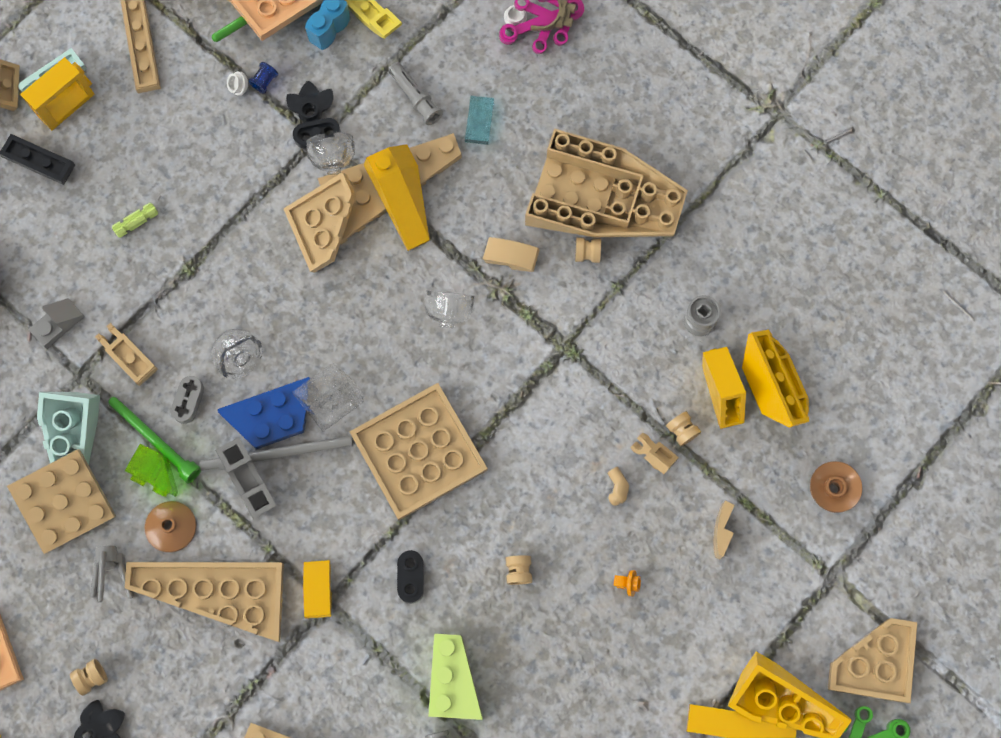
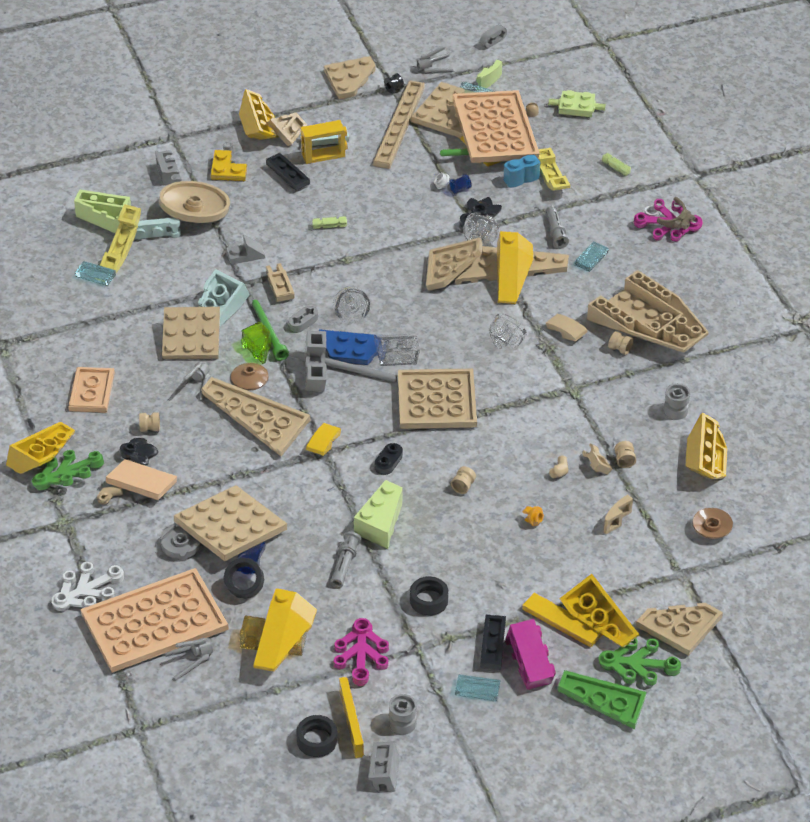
camera: 25 degrees right, 30 degrees down
(724, 387) = (667, 444): yellow slope -> none

